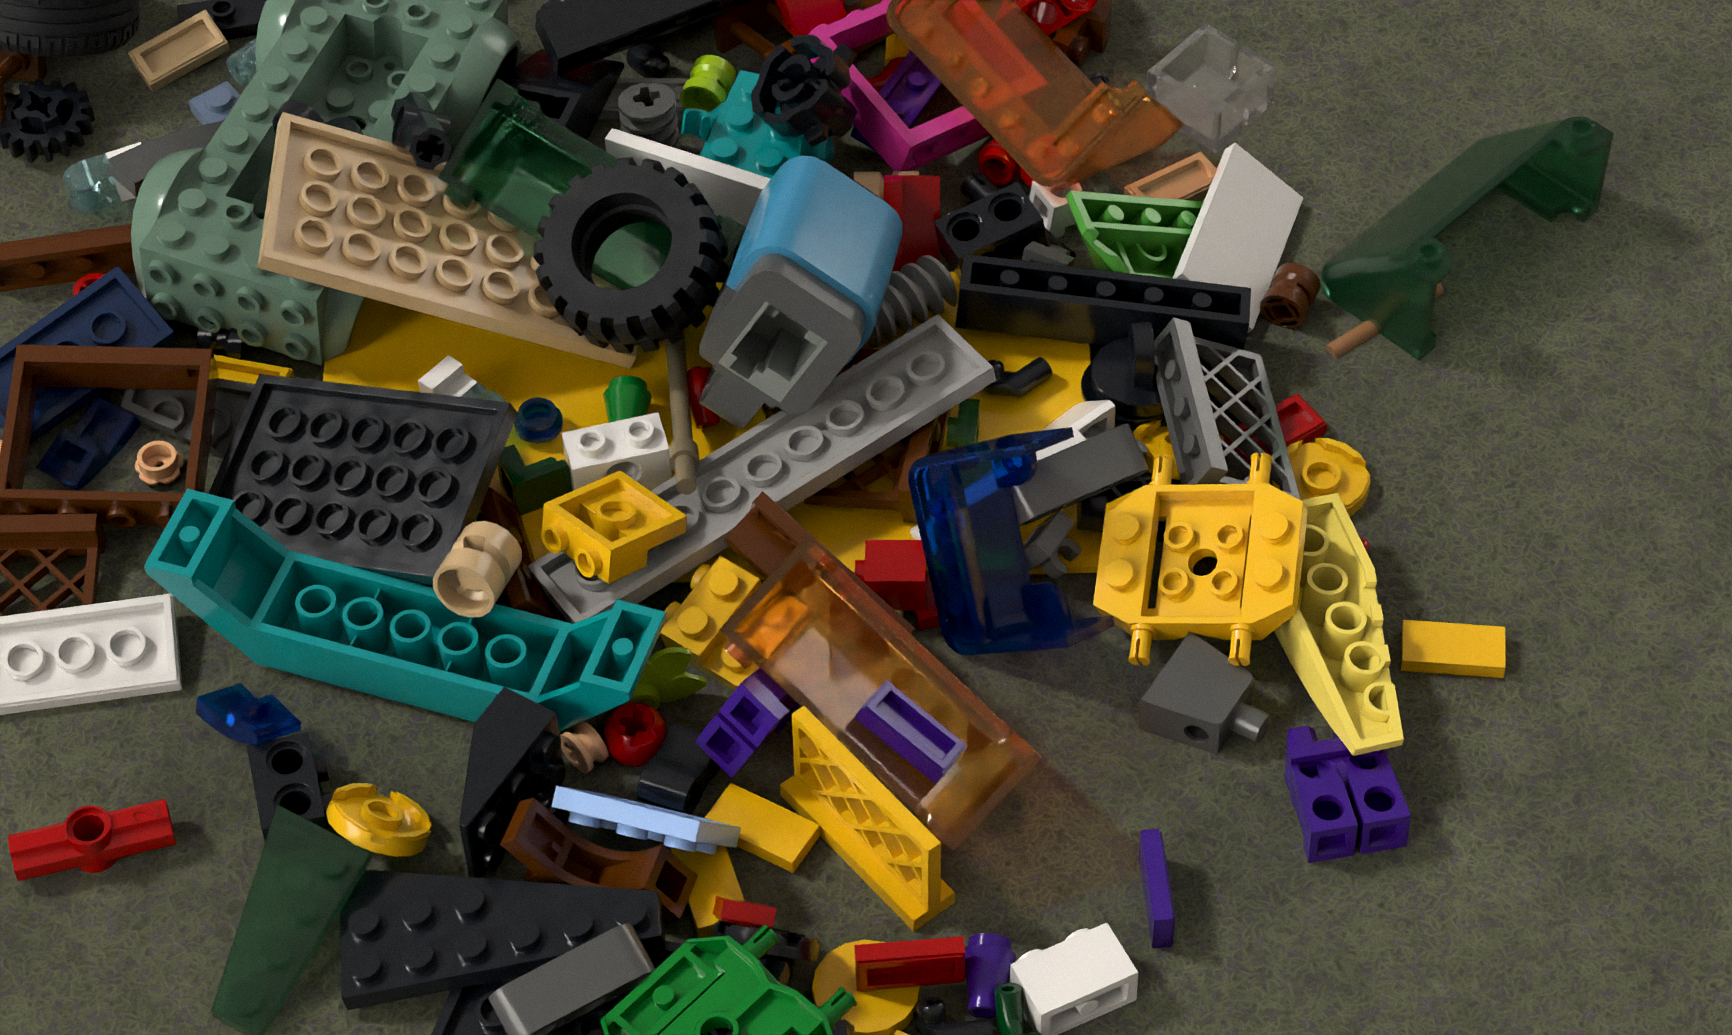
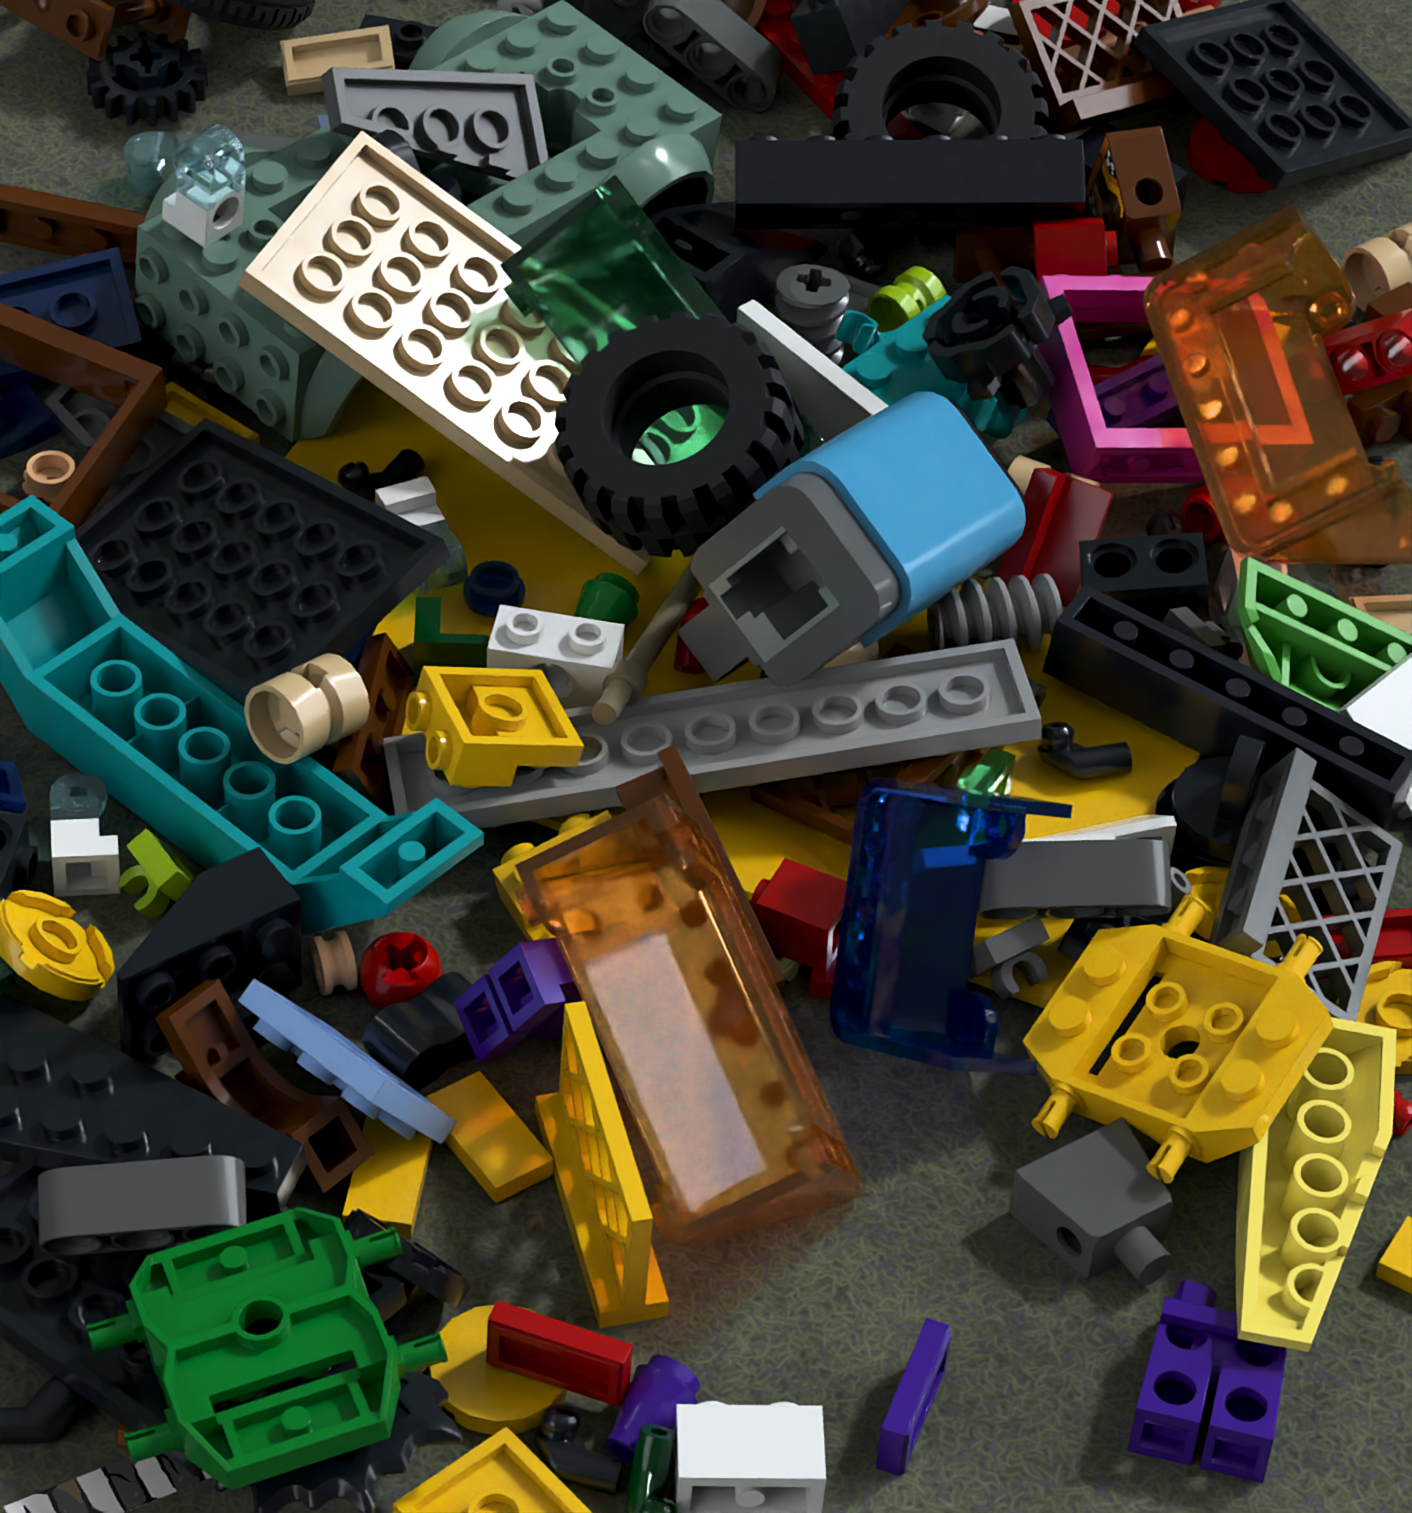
camera: 20 degrees right, 5 degrees down
(188, 198) = (208, 182): none -> clear light blue leg
(322, 70) = (447, 116): none -> wing
(349, 738) = (82, 854): none -> white leg
(408, 374) = (402, 468): none -> black arm
(421, 130) = (514, 211): black piece -> none
(424, 731) = (159, 870): none -> lime tile
(666, 678) = (458, 920): lime plate -> none
(744, 912) = (396, 1212): red tile -> none
(911, 731) = (707, 1089): dark purple tile -> none

